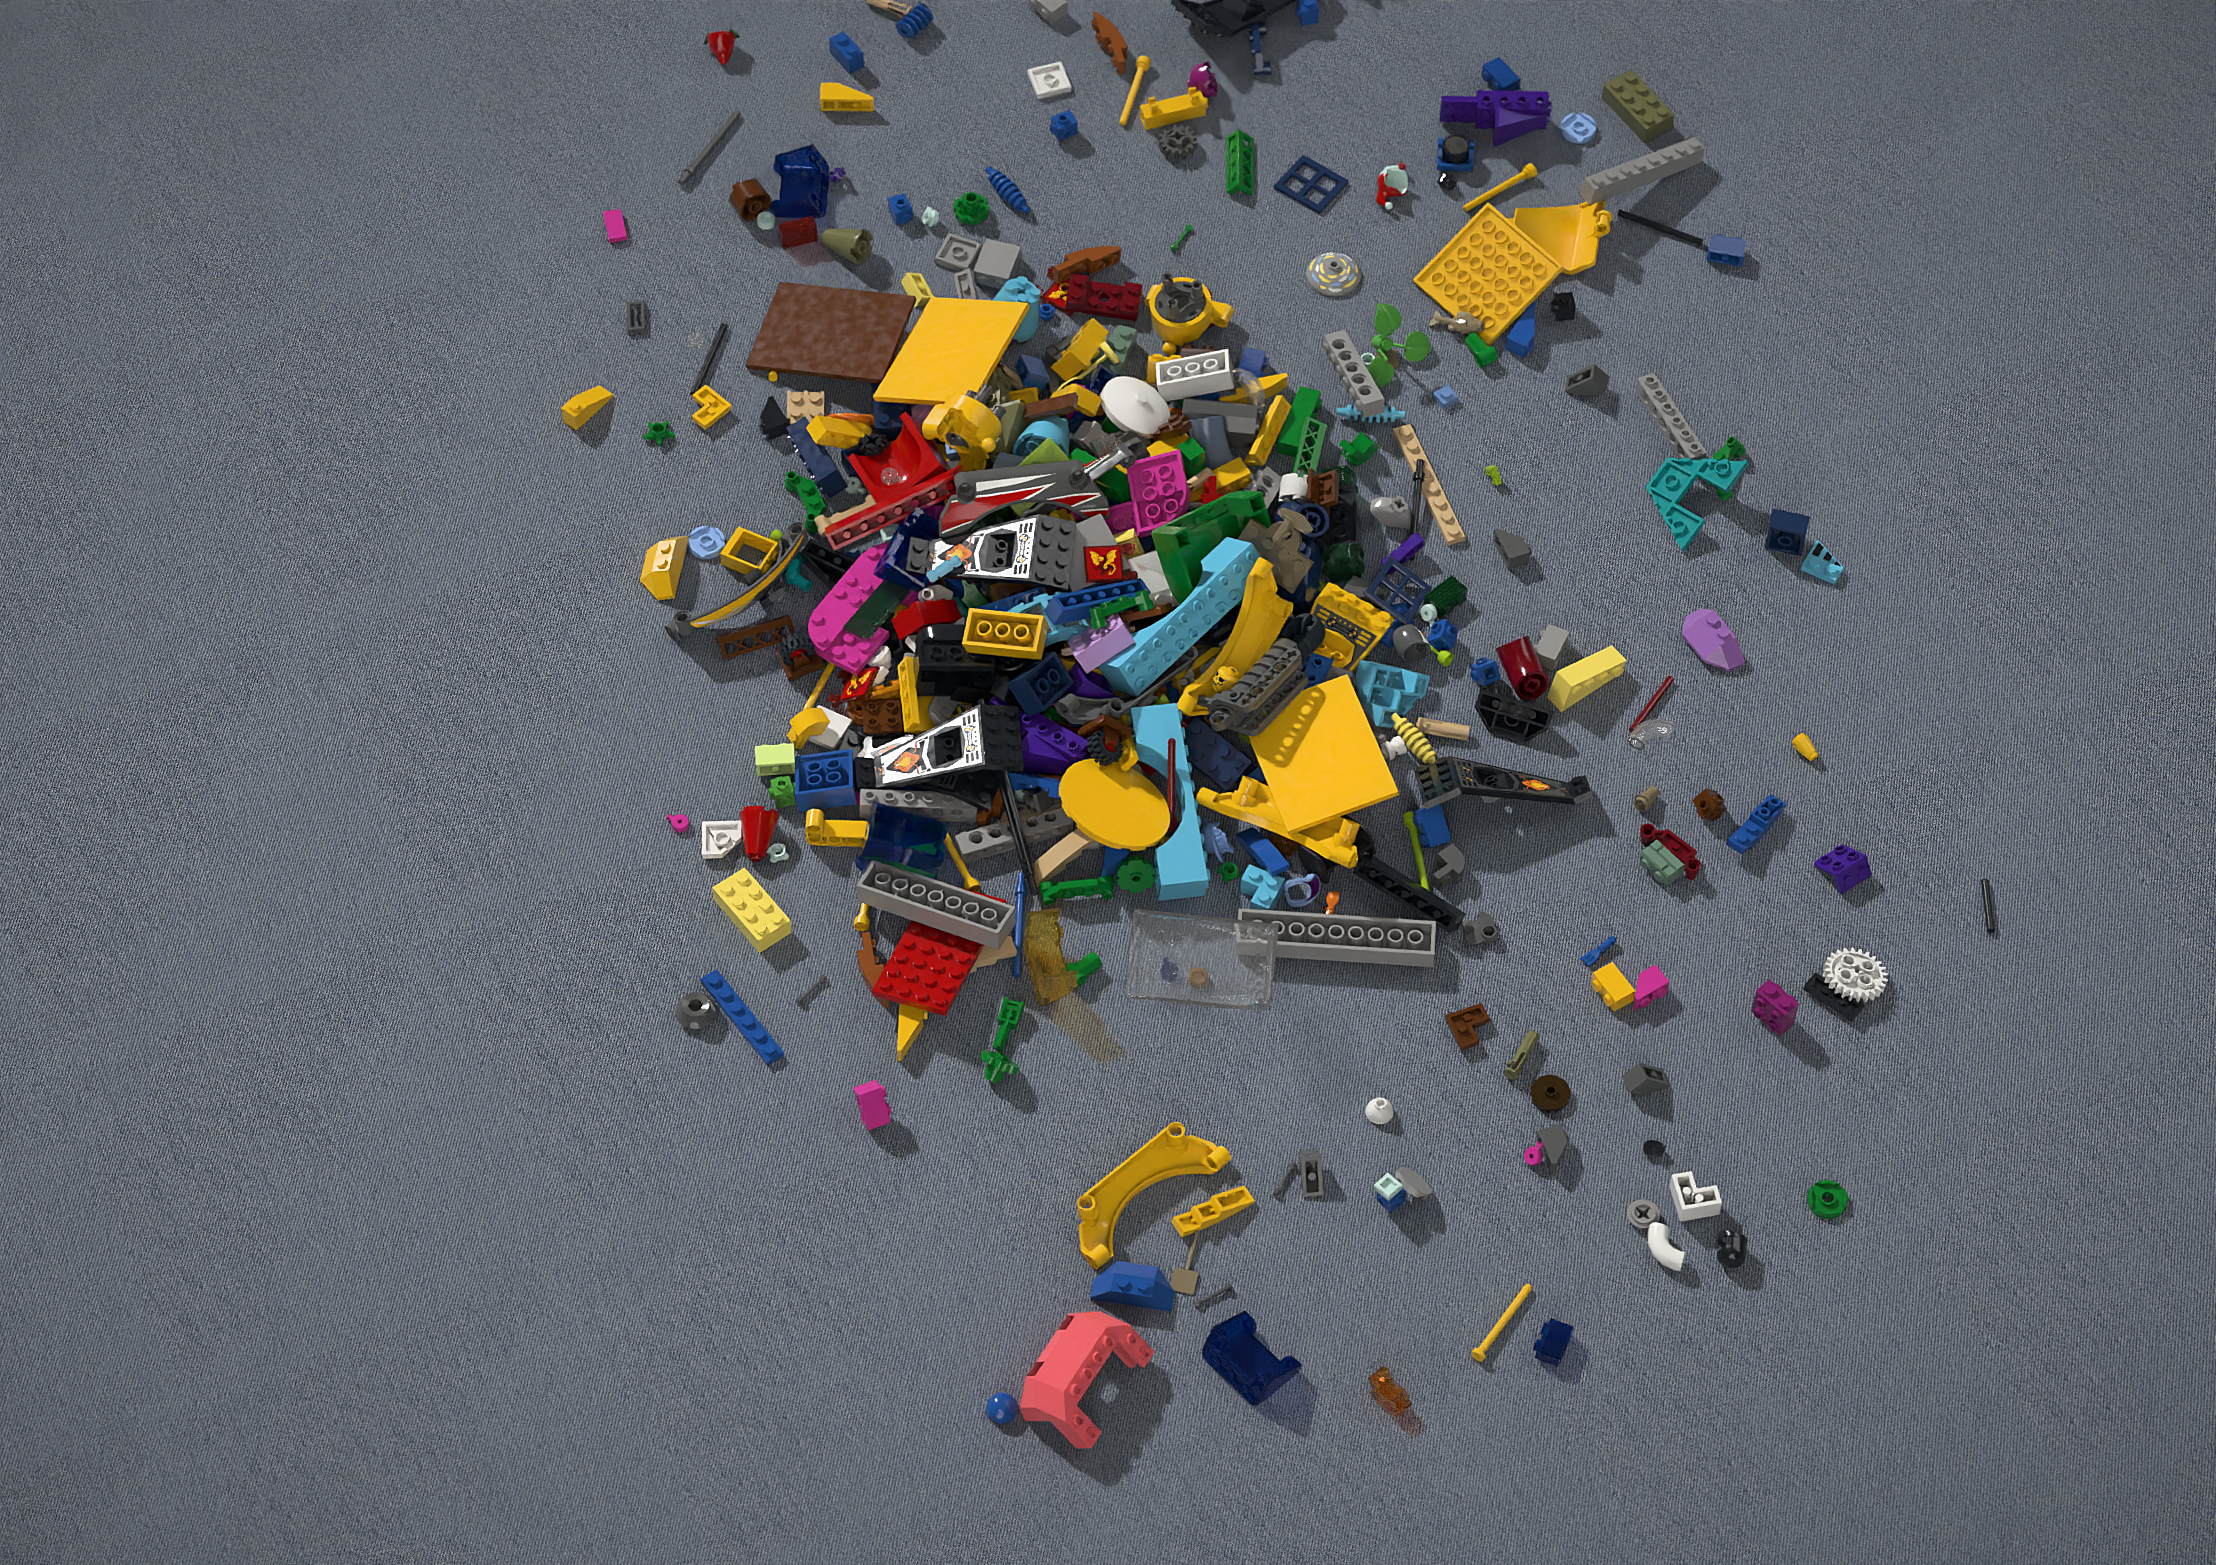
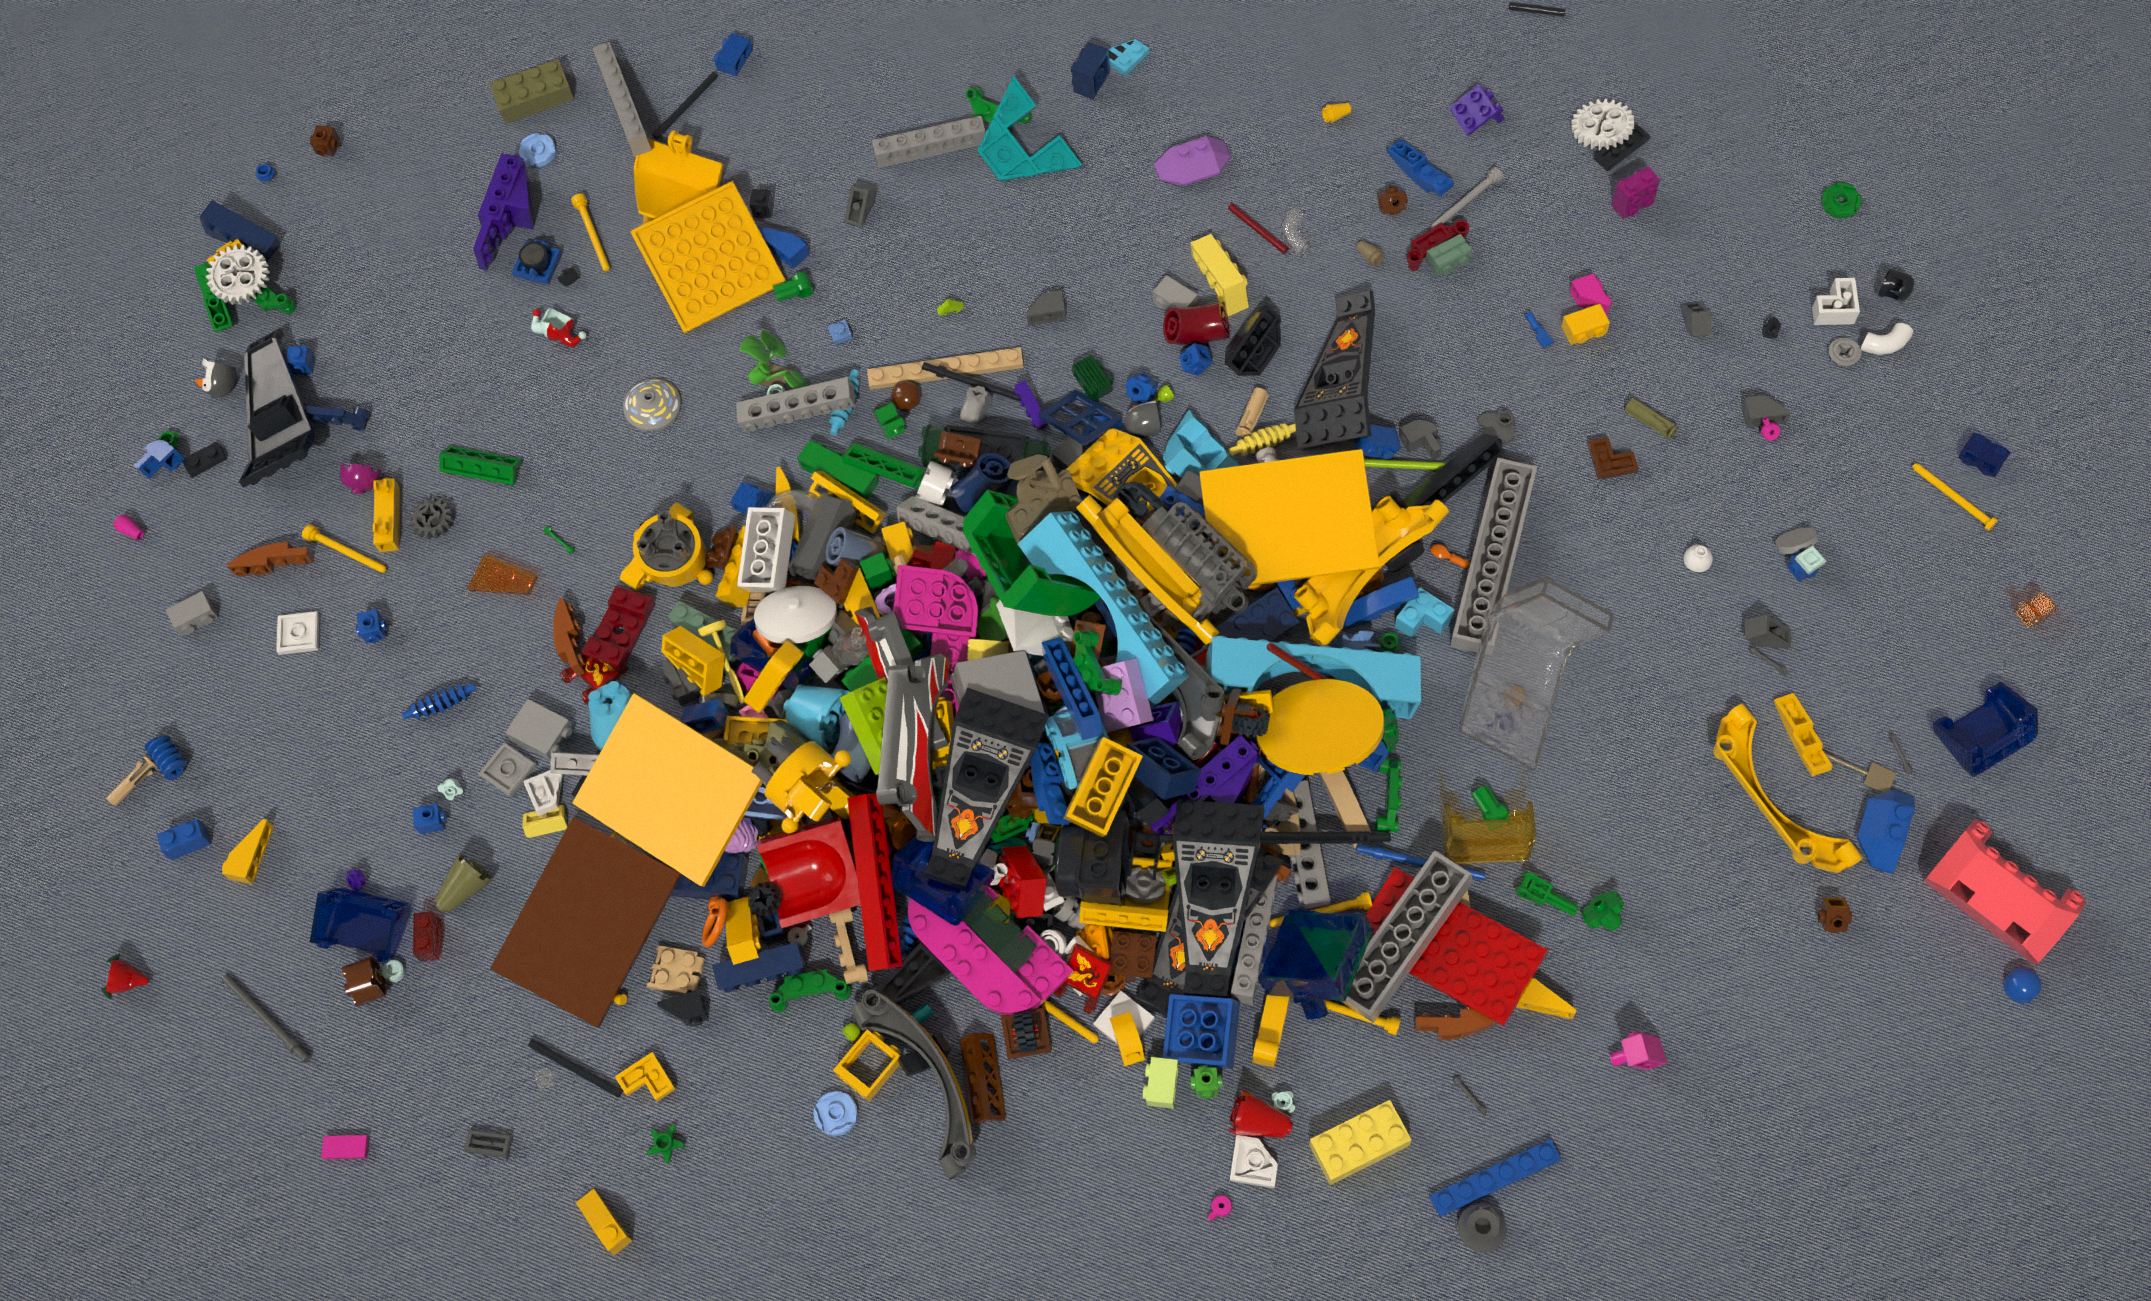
camera: 70 degrees left, 10 degrees up
(664, 566) = (859, 1167): yellow wedge -> none
(890, 476) = (819, 883): clear piece -> none
(939, 280) = (544, 791): none -> white wing
(944, 568) = (979, 843): medium azure axle -> none
(971, 208) = (452, 744): green plant -> none
(1034, 1245) = (1834, 915): none -> reddish brown brick
(1050, 406) = (789, 692): reddish brown tile -> none
(1106, 563) = (1018, 673): flag -> none
(1133, 205) = (501, 577): none -> clear orange wing
(1224, 679) = (1182, 588): yellow head -> none
(1312, 183) = (527, 403): dark blue window -> none
(1313, 884) = (1421, 568): light blue piece -> none
(1391, 459) = (905, 395): none -> reddish brown hair
(1429, 613) = (1109, 397): light aqua piece -> none
(1462, 323) = (755, 296): dark tan animal -> none
(1500, 75) = (451, 202): blue brick -> none
(1550, 1101) = (1697, 412): dark brown plate -> none
(1766, 890) = (1494, 177): none -> light grey piece

